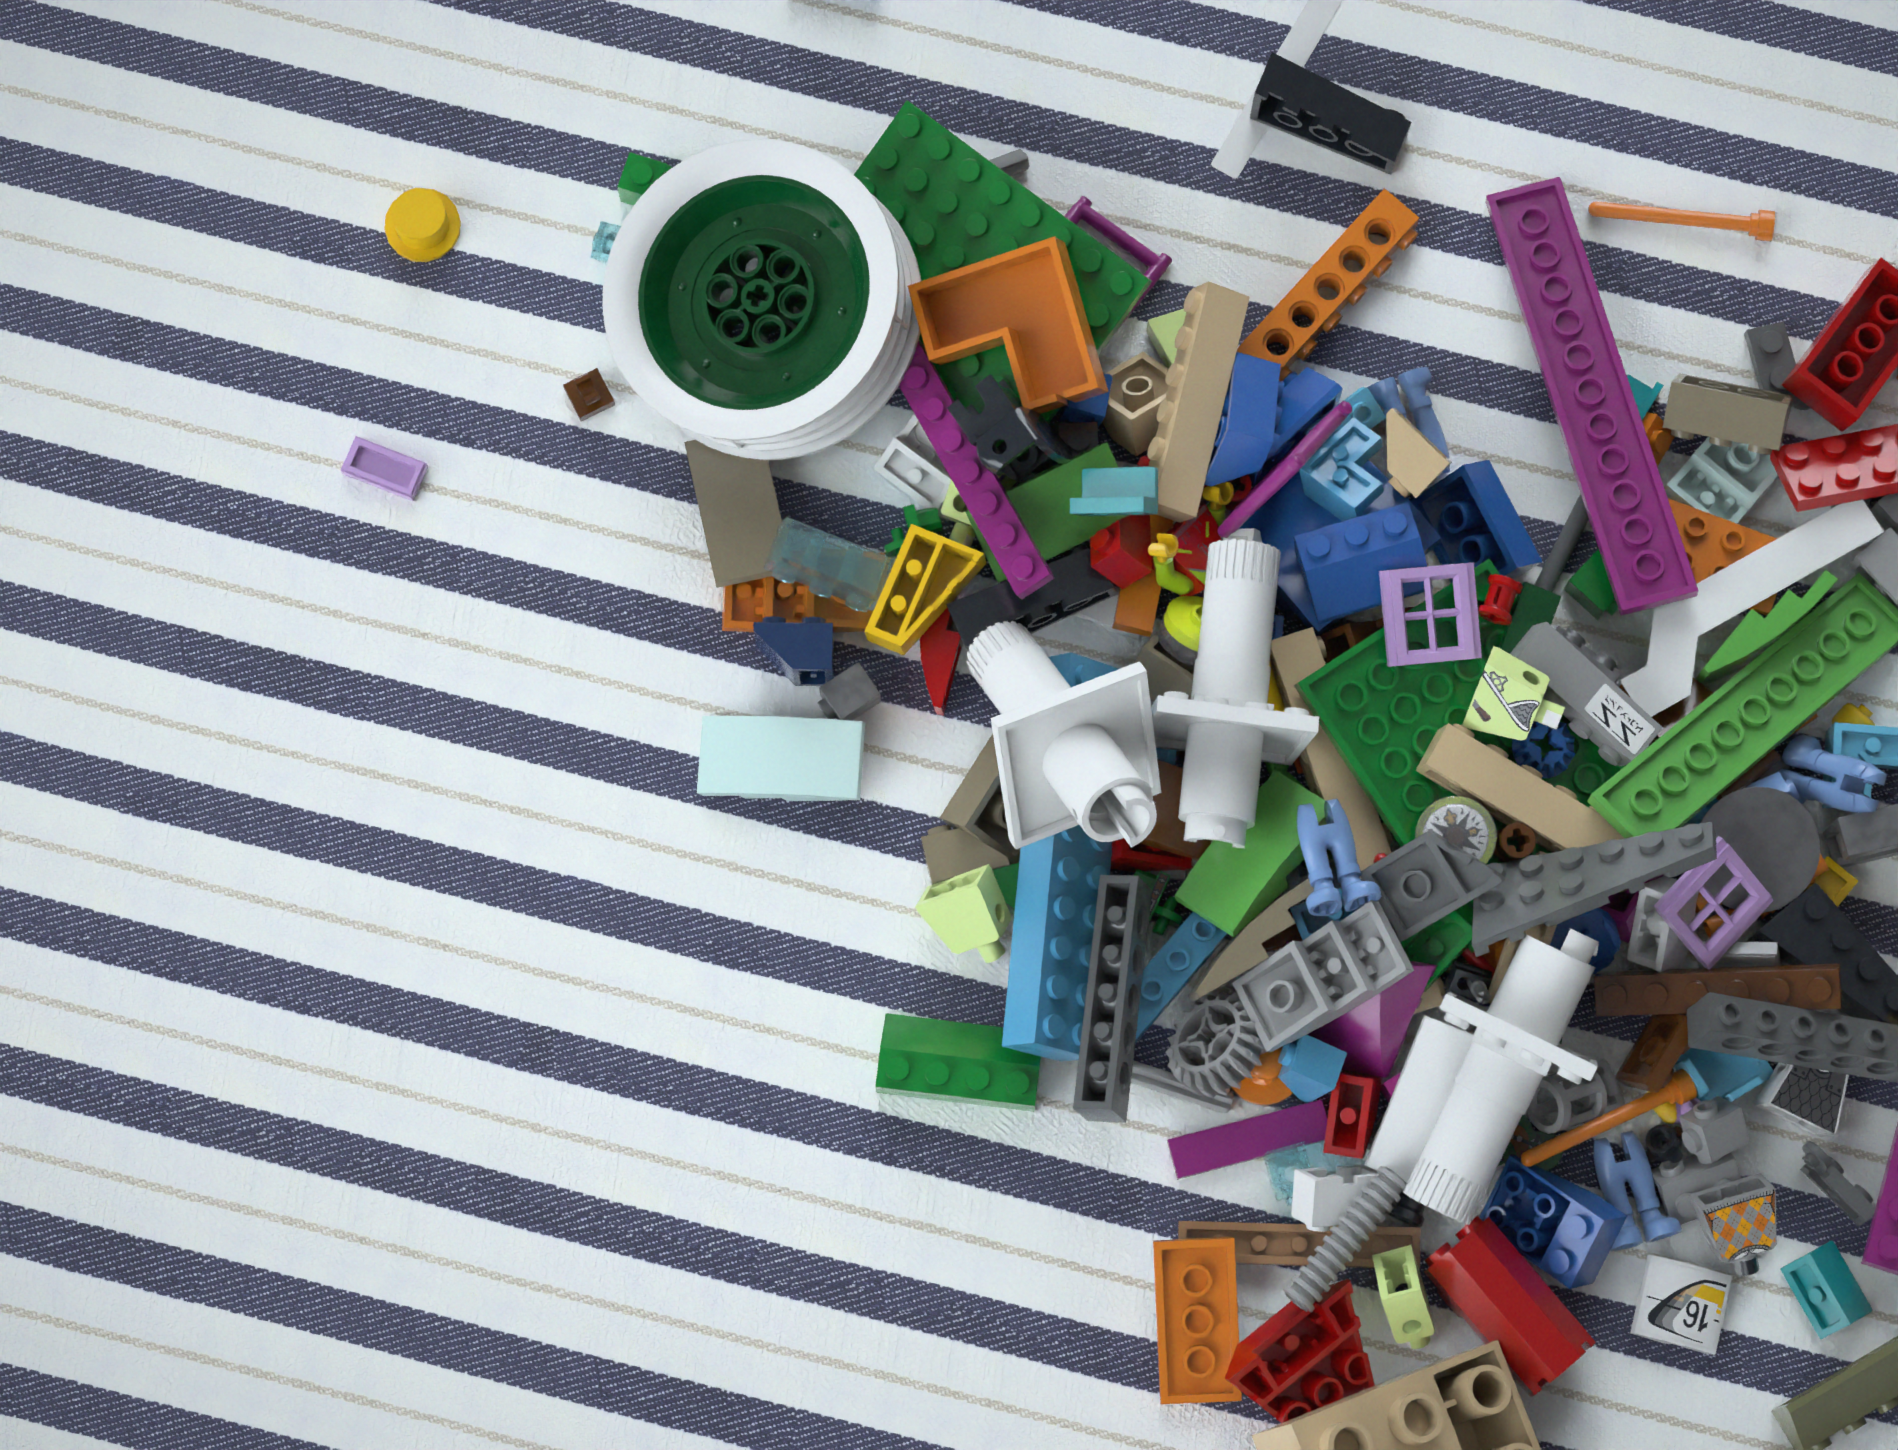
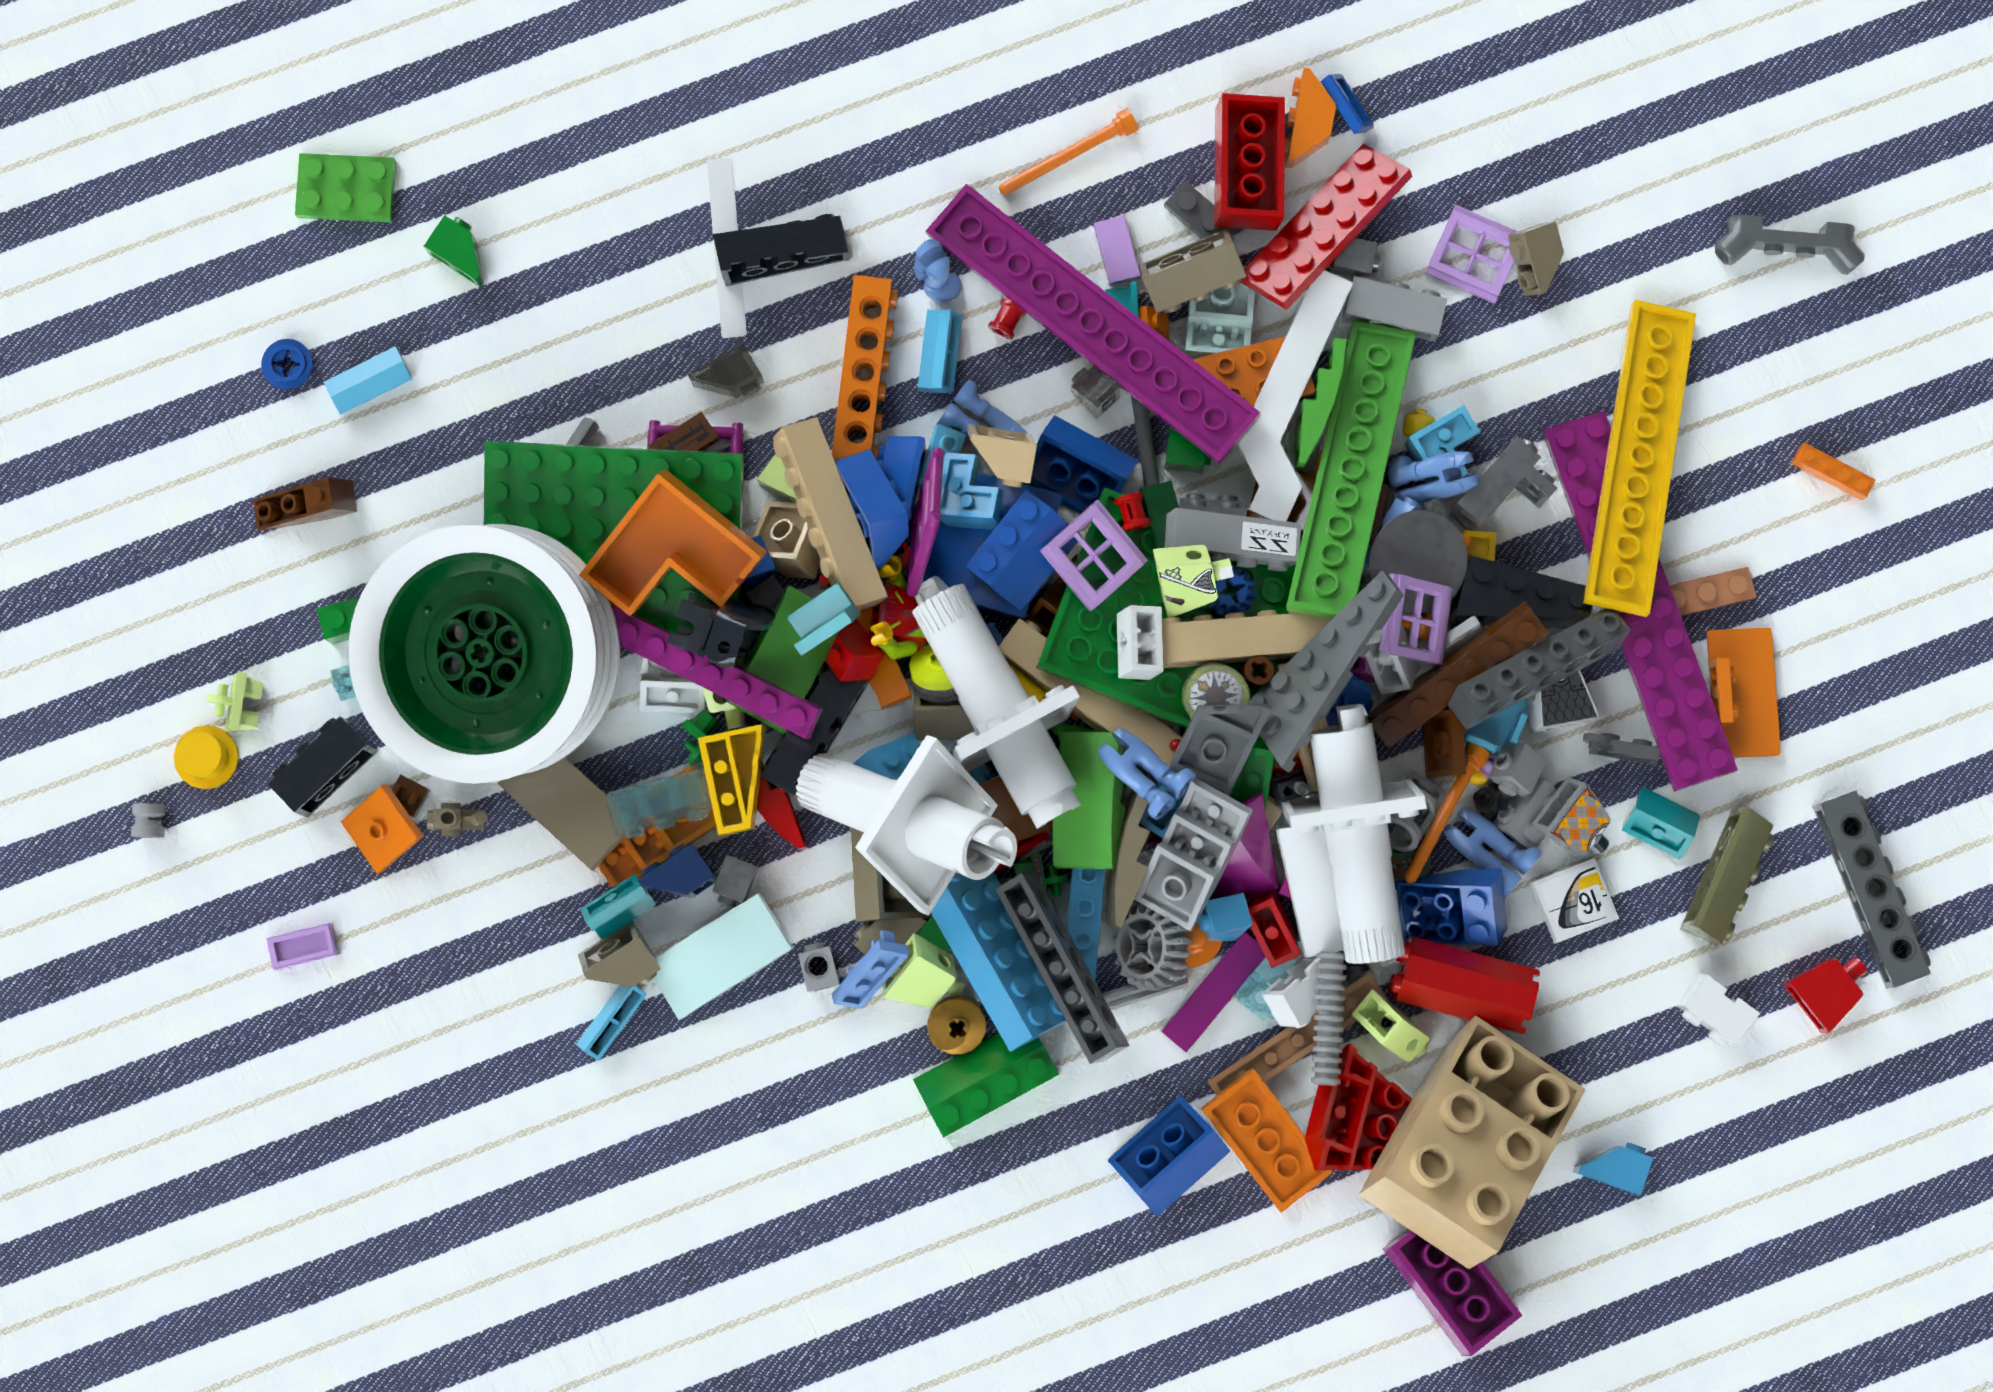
camera: 35 degrees left, 5 degrees up
(324, 245) = (148, 820): none -> light grey wheel
(504, 182) = (236, 717): none -> yellowish green hips
(527, 306) = (322, 766): none -> black brick
(542, 407) = (382, 828): none -> orange plate
(616, 446) = (453, 819): none -> dark tan piece
(630, 736) = (607, 1015): none -> medium azure piece
(684, 691) = (620, 958): none -> dark tan slope
(691, 48) = (305, 504): none -> reddish brown slope
(715, 641) = (617, 907): none -> teal panel
(870, 855) = (829, 978): none -> light grey brick
(918, 873) = (870, 971): none -> medium blue plate
(950, 977) = (956, 1009): none -> pearl gold piece
(1088, 1267) = (1169, 1155): none -> blue slope
(1117, 234) = (691, 435): none -> reddish brown tile
(1192, 203) = (729, 374): none -> clear smoke slope
(1416, 729) = (1140, 642): none -> white brick
(1417, 322) = (940, 351): none -> medium azure piece
(1466, 236) = (934, 268): none -> medium blue piece
(1507, 335) = (1006, 319): none -> red bush
(1547, 464) = (1095, 390): none -> clear smoke slope
(1666, 343) = (1116, 250): none -> lavender tile

